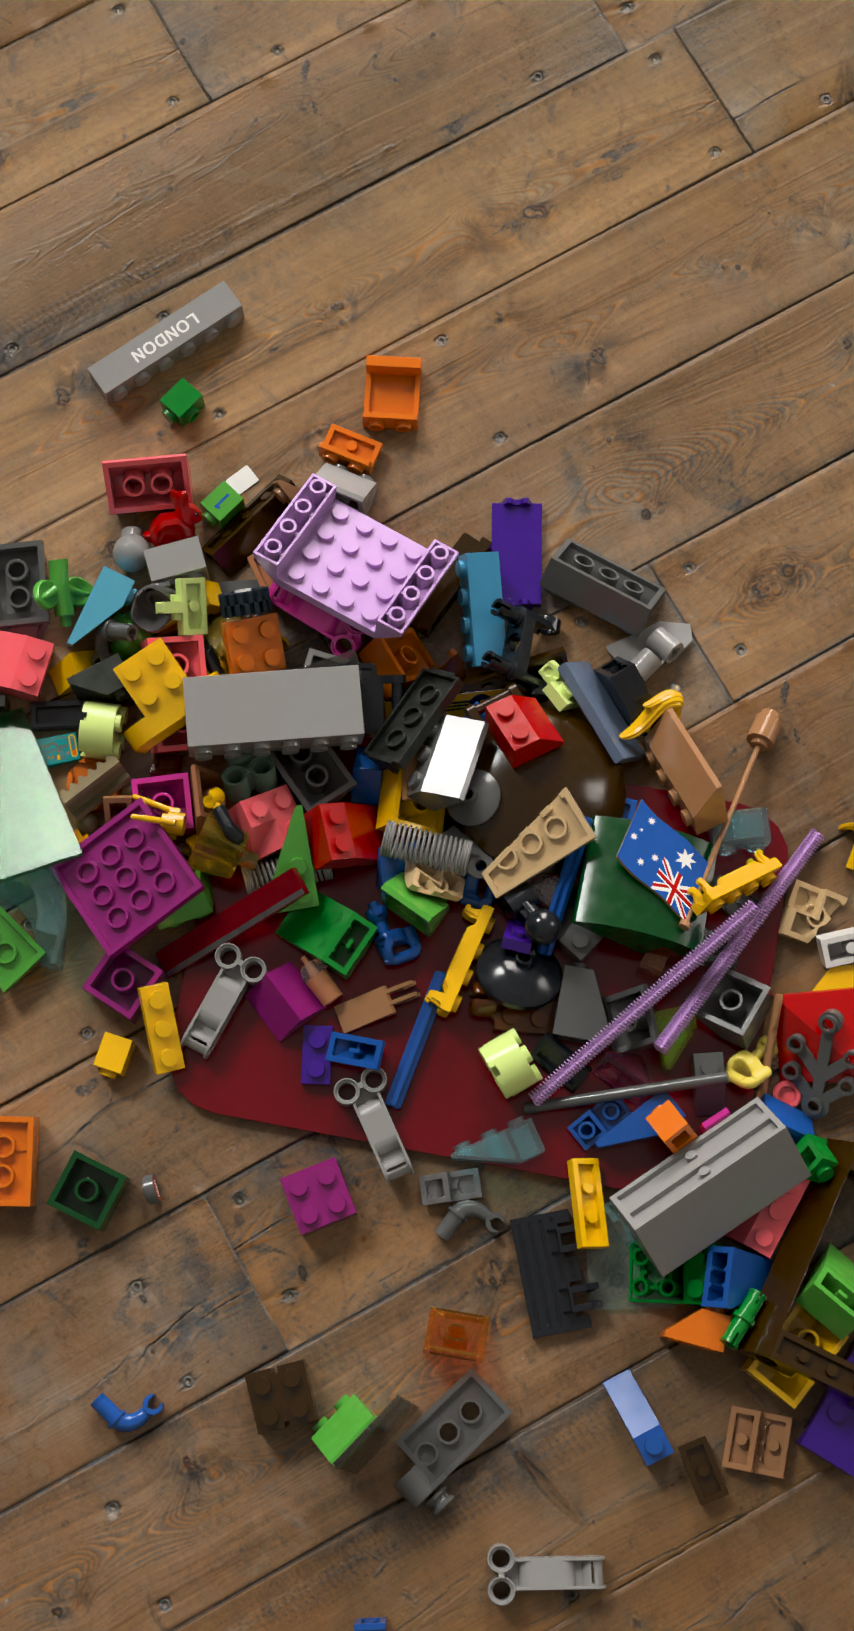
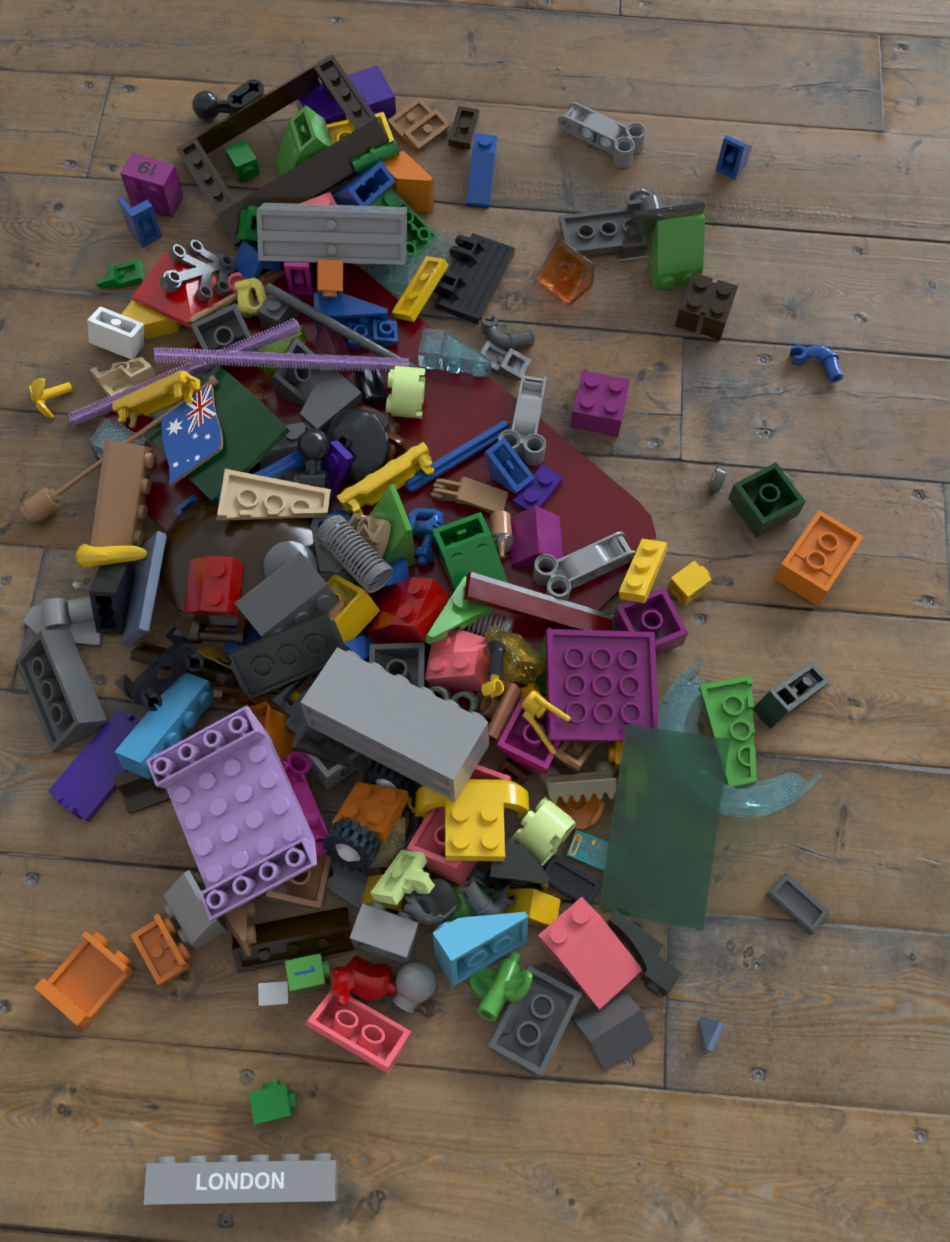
camera: 150 degrees left, 10 degrees down
(557, 689) = (161, 619): yellowish green hinge -> none

